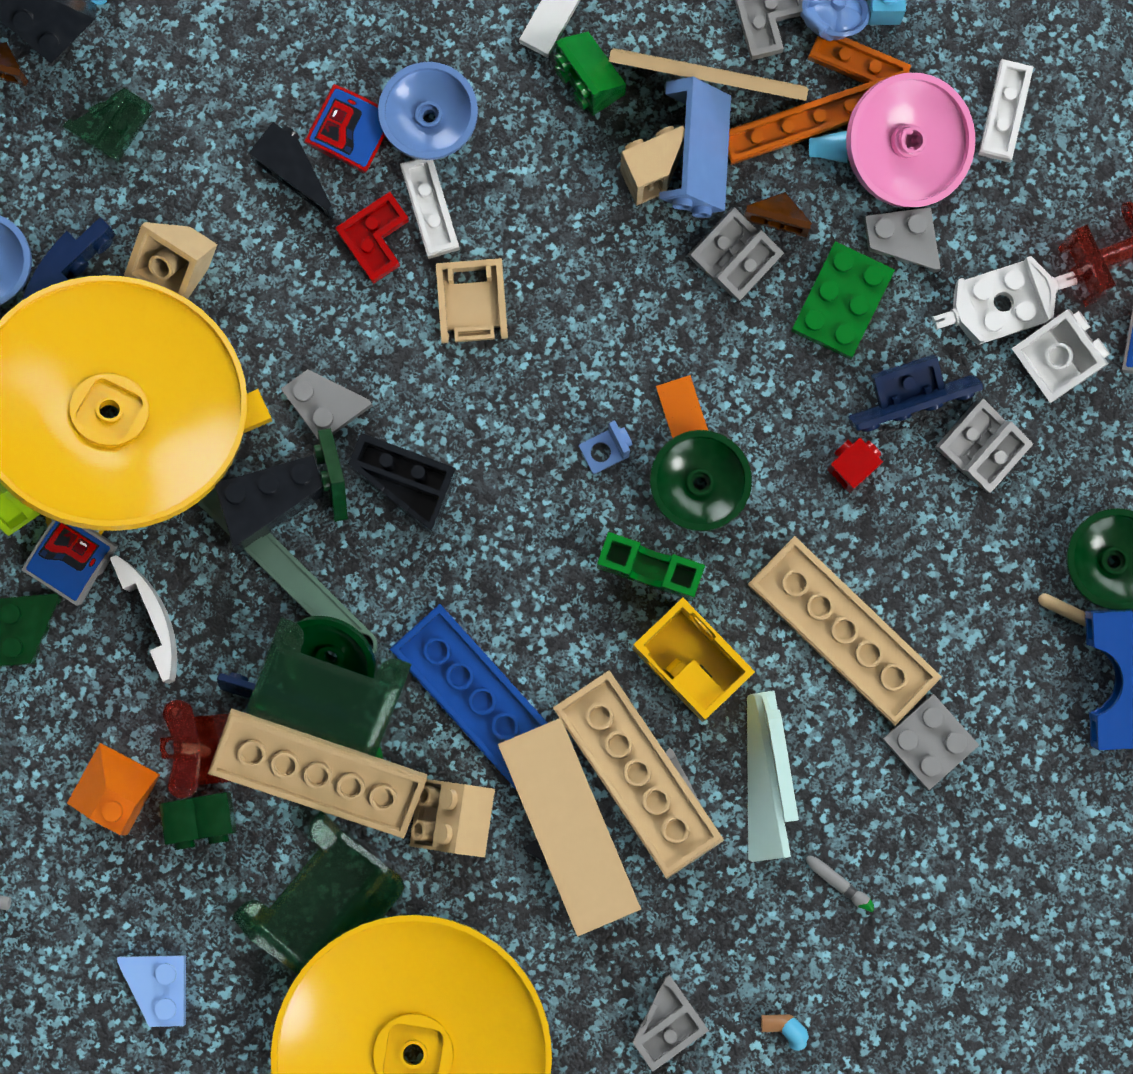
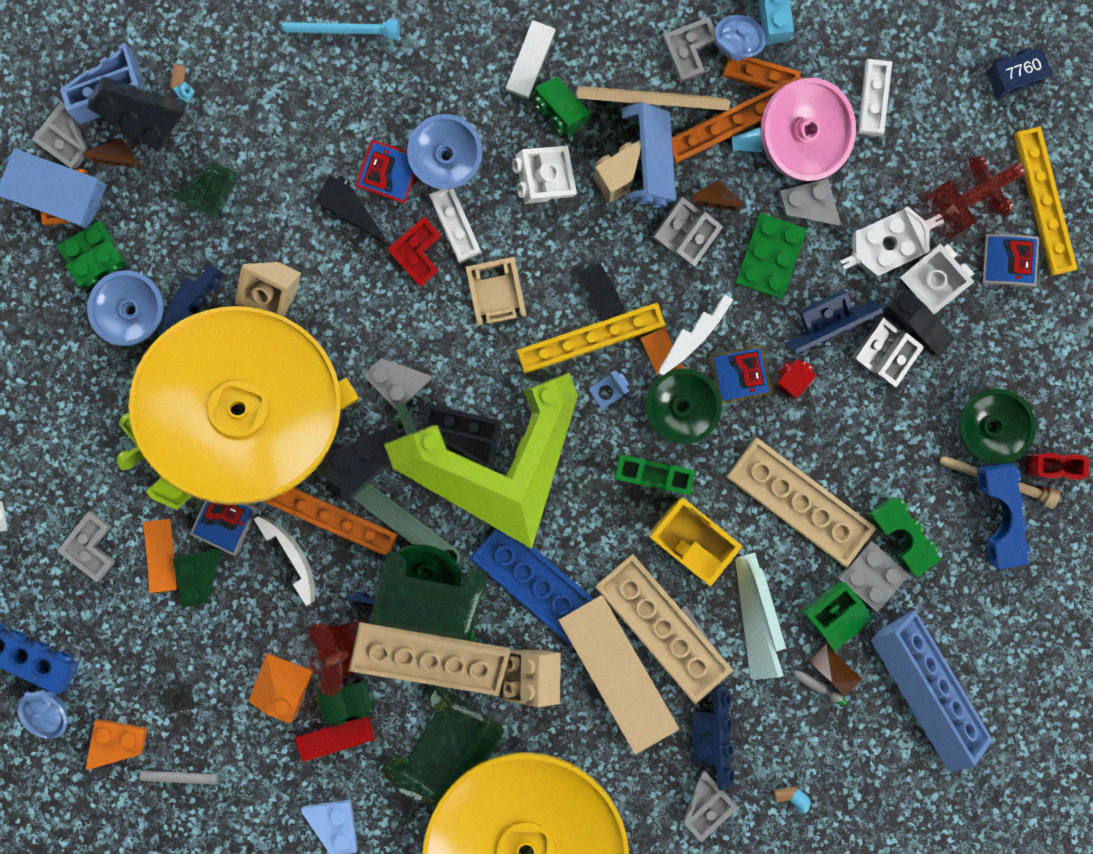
camera: 10 degrees left, 5 degrees up
(176, 868) = (334, 739): none -> red tile
(212, 573) = (335, 520): none -> orange tile
(447, 576) = (505, 502): none -> lime wedge
(555, 156) = (544, 174): none -> white plate
(590, 378) = (591, 338): none -> yellow tile
(611, 318) = (601, 291): none -> black slope
(686, 931) = (712, 737): none -> dark blue bracket
(718, 398) = (688, 342): none -> white slope
(785, 450) = (741, 374): none -> slope
(863, 862) = (834, 670): none -> reddish brown slope
(875, 787) = (837, 615): none -> green slope
(991, 907) = (932, 692): none -> medium blue slope
(995, 715) = (918, 552): none -> green arch
(1030, 410) = (918, 321): none -> black slope

